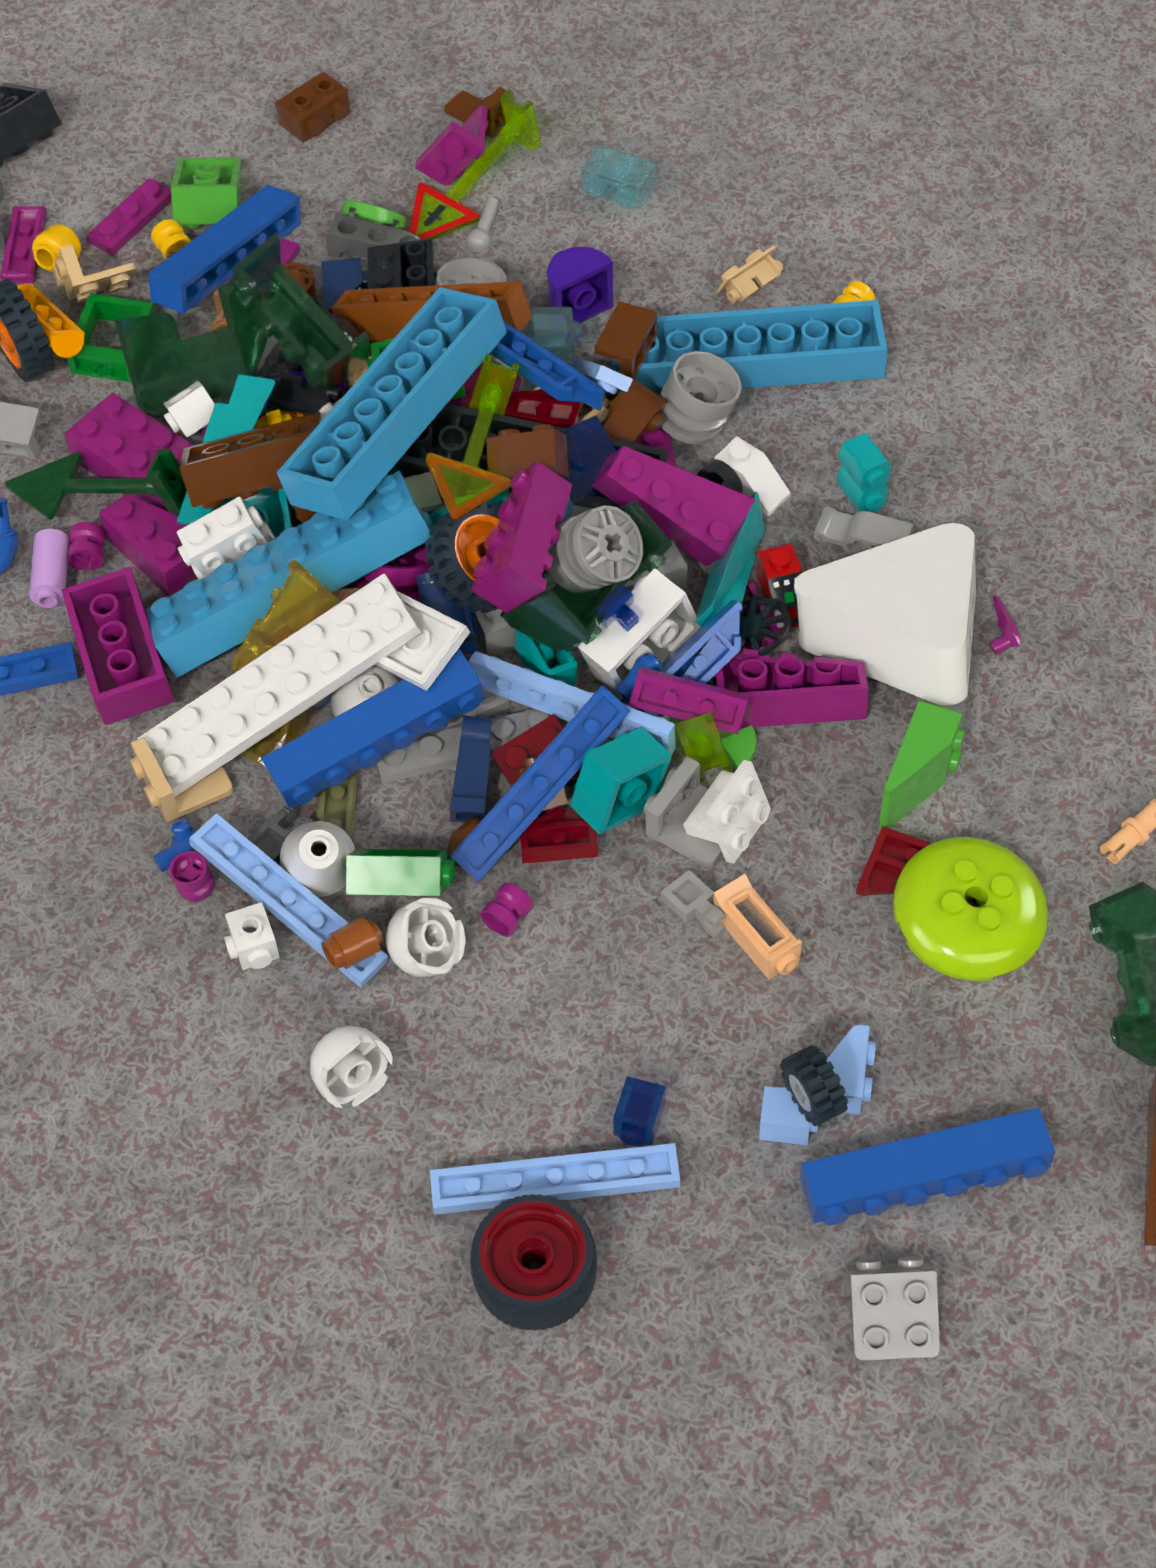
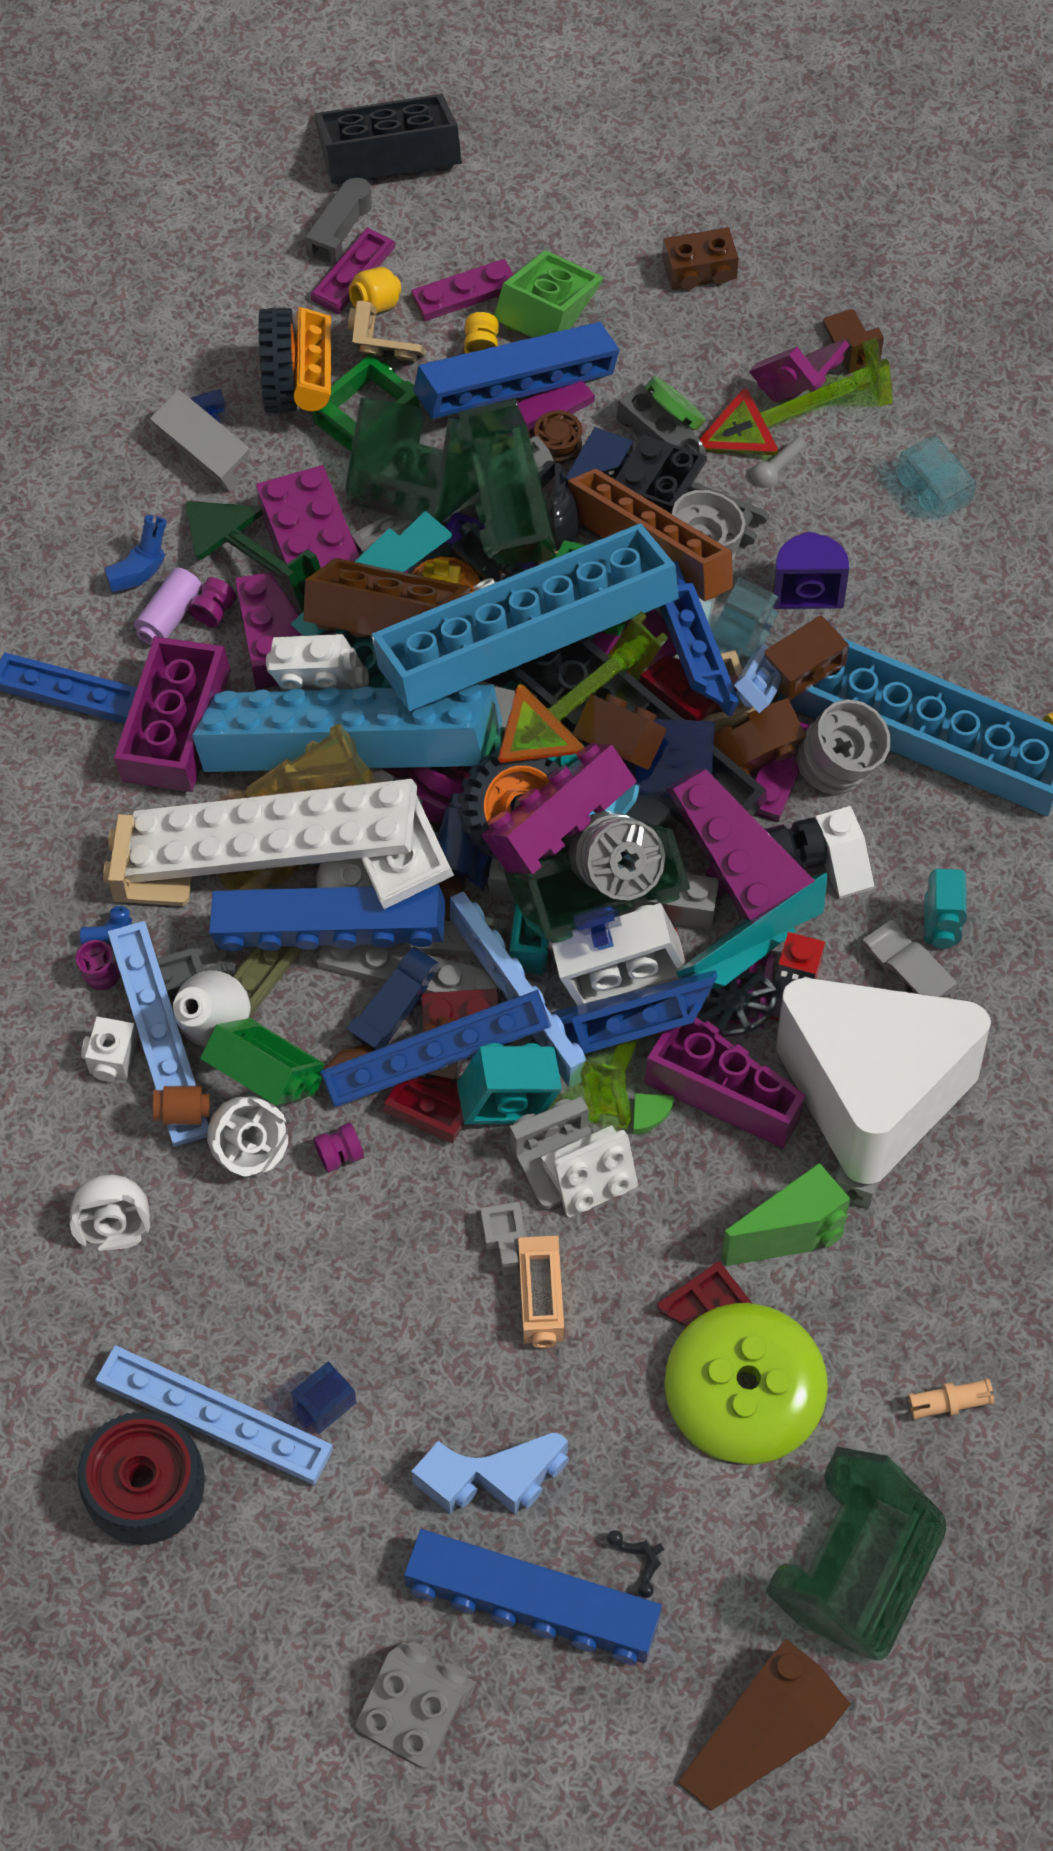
camera: 30 degrees right, 5 degrees up
(189, 409) = (372, 518): white brick -> none
(647, 661) = (598, 992): blue arm -> none
(687, 699) = (614, 1044): magenta plate -> none
(758, 266) = (977, 645): tan hinge -> none
(814, 1085) = (467, 1467): black wheel -> none
(957, 1084) = (645, 1588): none -> black piece
(1007, 626) = (980, 1133): magenta bar -> none

